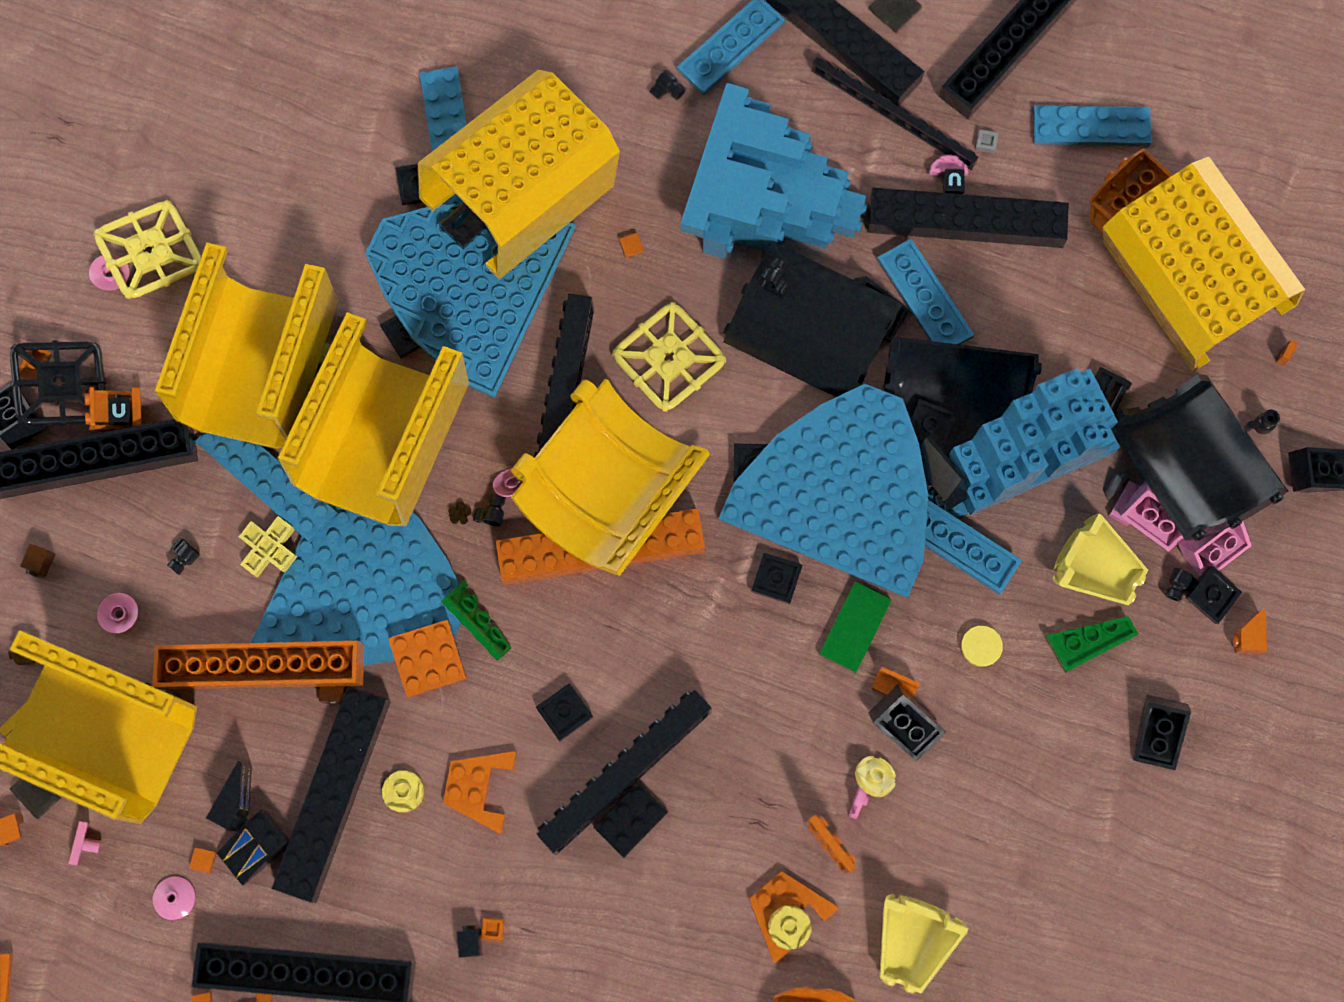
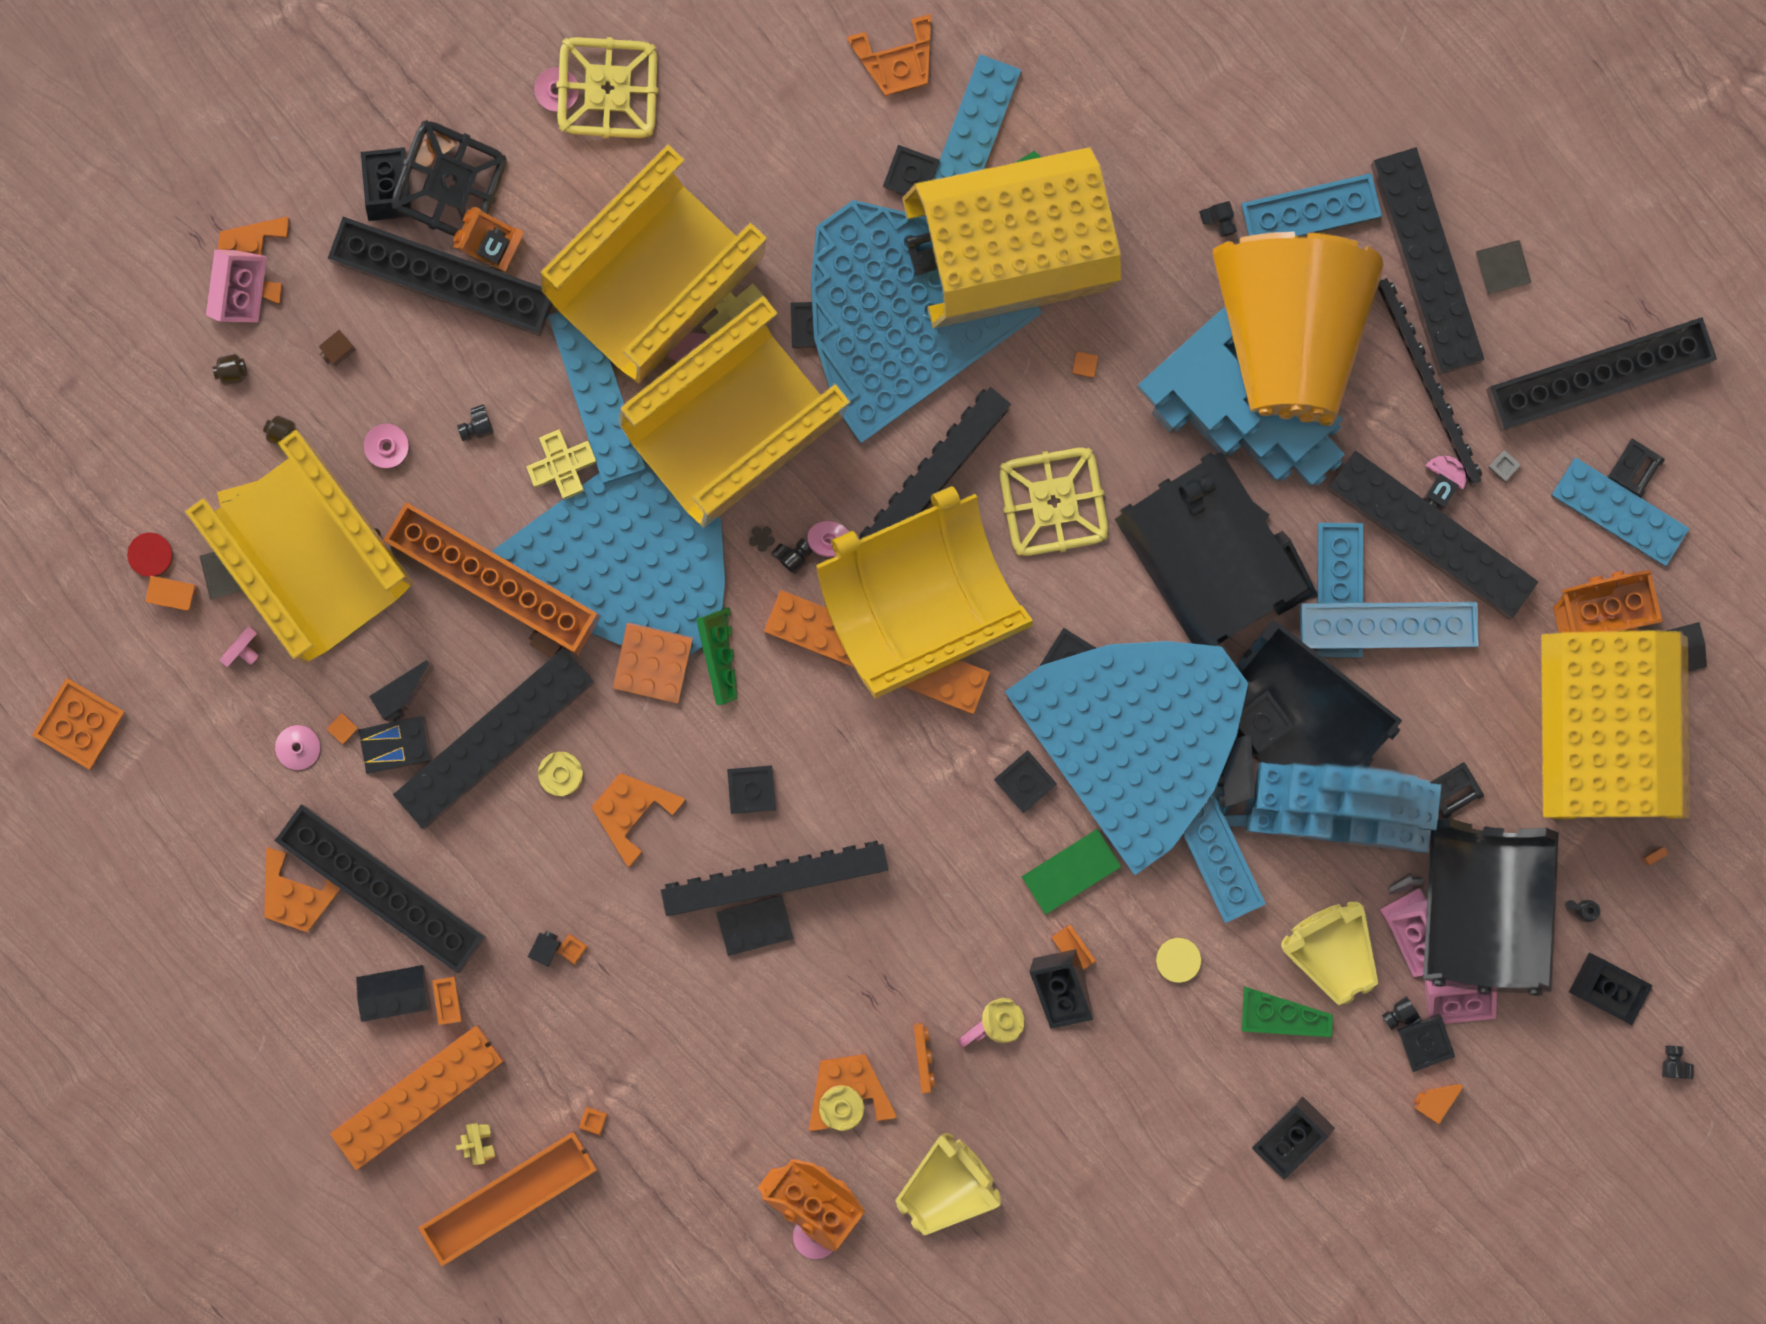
camera: 25 degrees right, 10 degrees up
(364, 114) = (897, 67): none -> orange wing
(767, 105) = (1297, 318): none -> light orange cone
(979, 298) = (1389, 625): none -> dark azure plate
(1076, 87) = (1629, 465): none -> black plate

